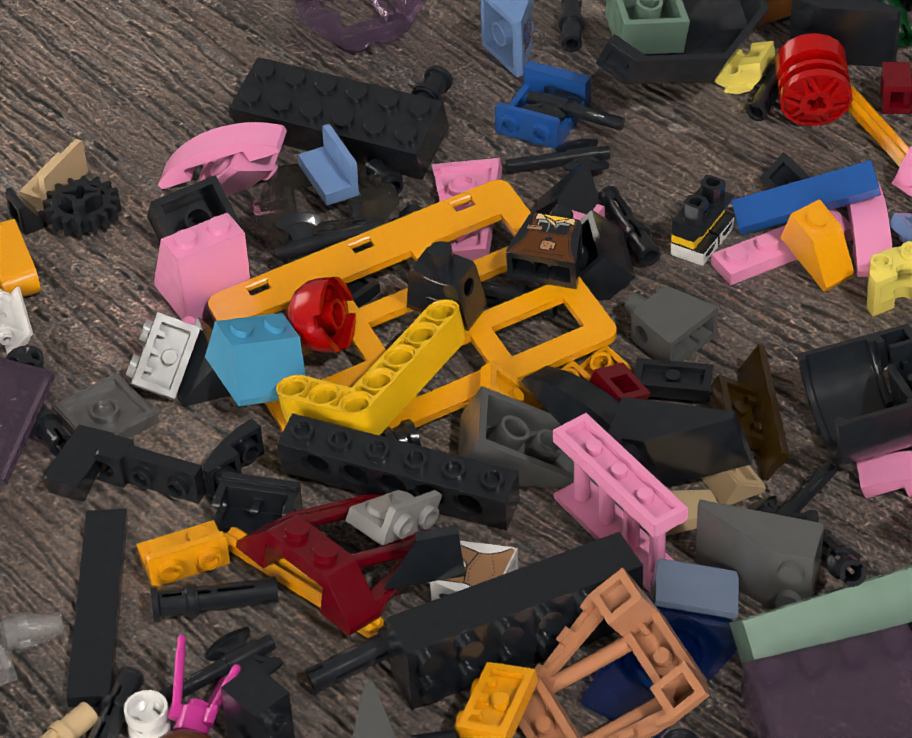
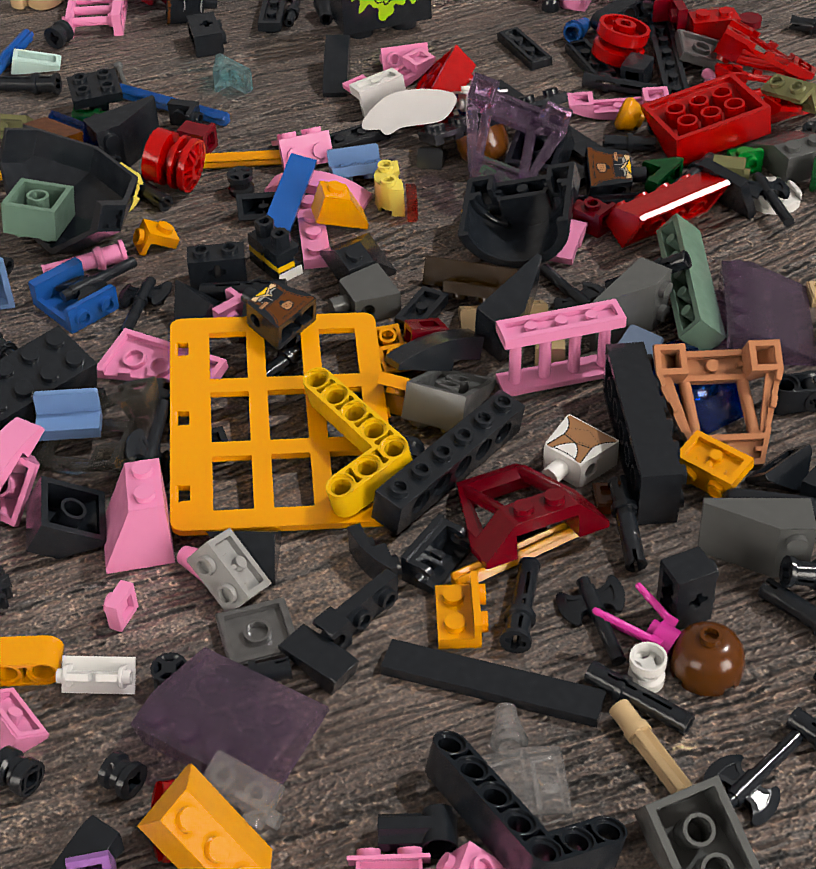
camera: 70 degrees left, 0 degrees up
(100, 304) = (120, 605): none -> bright pink plate
(254, 356) = (290, 501): dark azure slope -> none
(322, 315) = (265, 452): red cylinder -> none
(395, 515) = (507, 468): light grey bracket -> none
(432, 558) = (562, 449): black slope -> none
(444, 275) = (281, 373): black torso -> none
(618, 98) = (98, 258): none -> bright pink pin
(650, 187) = (216, 263): none -> black brick
(686, 124) = (155, 233): none -> light orange bracket
(740, 293) = (355, 255): none -> black slope
(834, 151) = (240, 180): none -> black wheel
(883, 306) = (411, 202): none -> clear red tile

